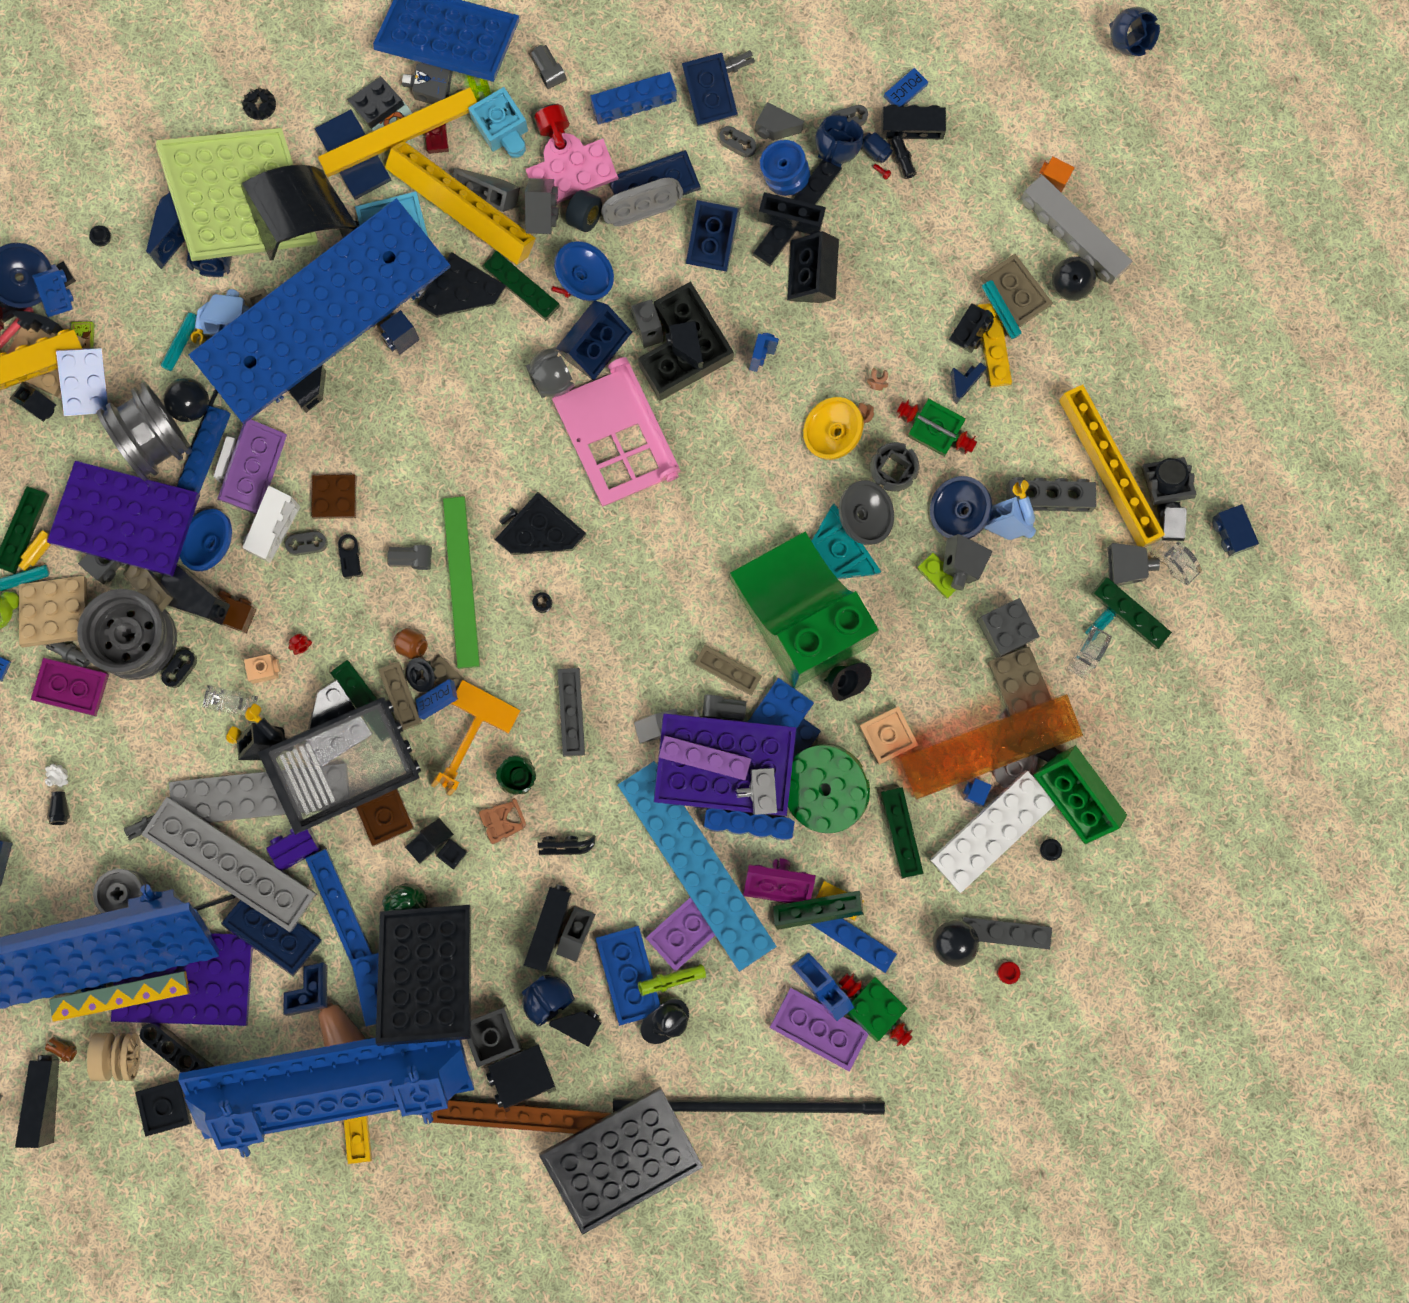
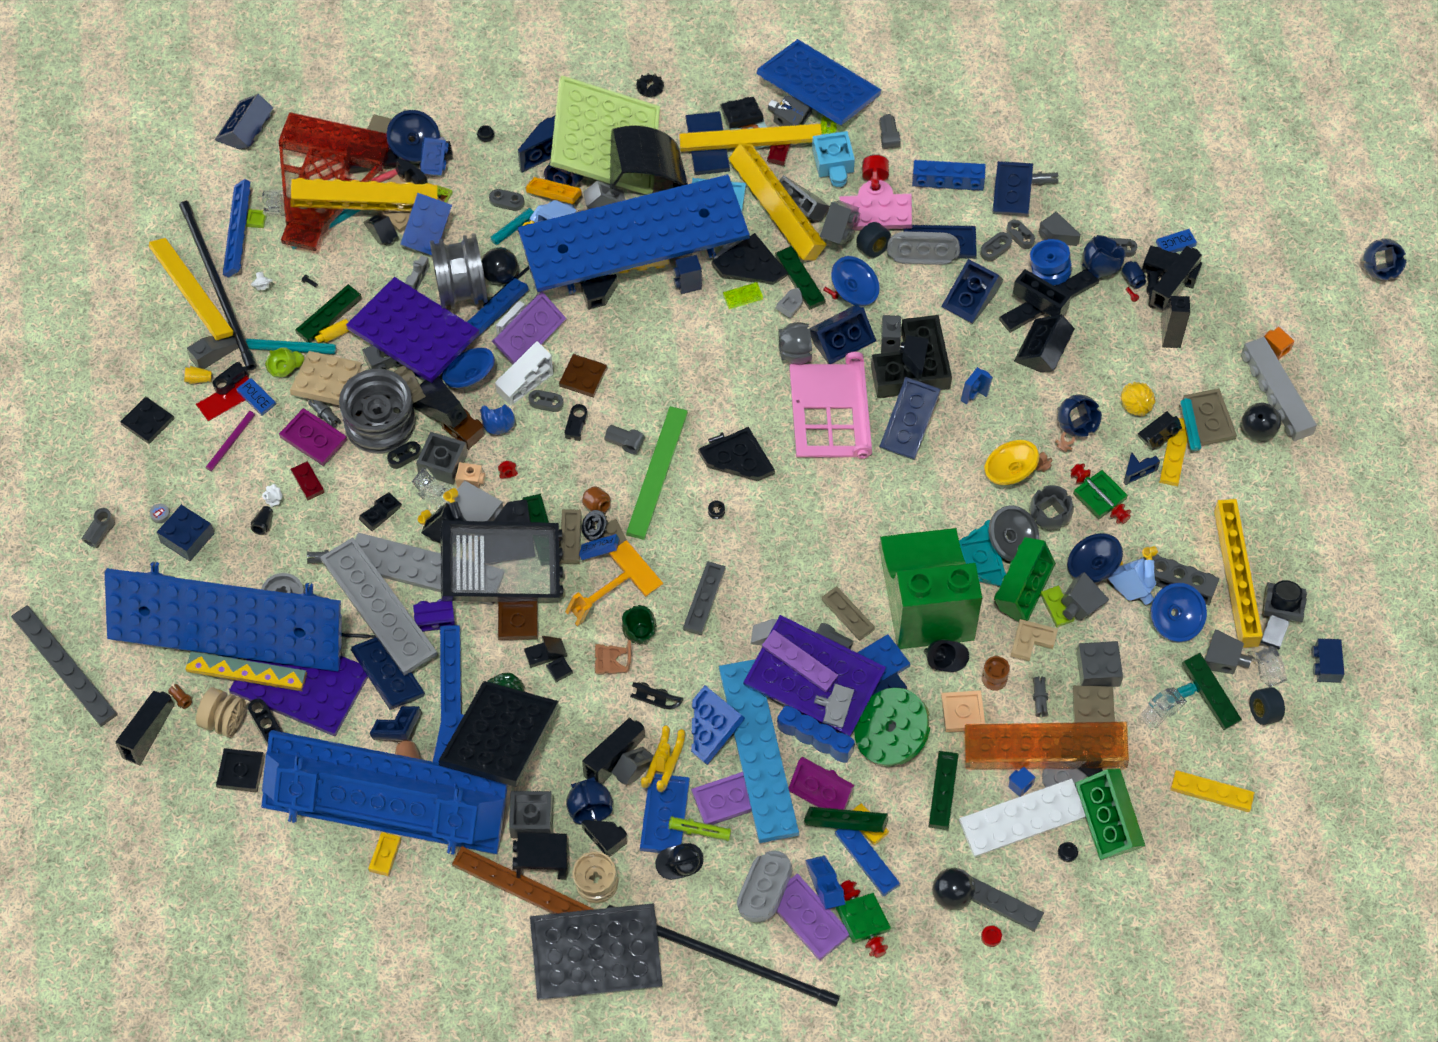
camera: 25 degrees right, 20 degrees down
(86, 741) = (307, 480): none -> dark red plate
(99, 440) = (420, 269): none -> light grey plate
(158, 310) = (506, 199): none -> dark grey plate
(183, 746) = (380, 512): none -> black slope
(207, 281) = (553, 190): none -> light orange plate
(222, 660) = (442, 457): none -> dark grey brick
(261, 271) = (601, 194): none -> light grey slope
(263, 589) = (497, 420): none -> blue hair
(285, 705) = (477, 504): none -> light grey brick
(467, 331) = (743, 295): none -> clear neon green tile
(523, 323) = (790, 302): none -> light grey plate
(583, 1093) = (588, 868): none -> tan wheel
(605, 920) = (663, 761): none -> yellow piece
(638, 855) = (712, 724): none -> plate
(706, 417) = (910, 418): none -> dark blue tile
(717, 168) = (993, 245): none -> dark grey plate
(763, 1016) = (764, 886): none -> light grey tile
(889, 351) = (1089, 417): none -> dark blue piece
(897, 561) = (1025, 579): none -> green slope
(907, 681) = (995, 673): none -> dark orange wheel
(922, 621) = (1030, 634): none -> tan plate
(927, 140) = (1175, 277): none -> black slope
(934, 298) = (1137, 398): none -> yellow hair
(945, 194) = (1174, 321): none -> black slope
(960, 686) = (1040, 696): none -> dark grey pin
(1076, 538) = (1189, 612): none -> blue dish
(1169, 723) = (1212, 791): none -> yellow plate
(1193, 608) = (1267, 705): none -> black wheel

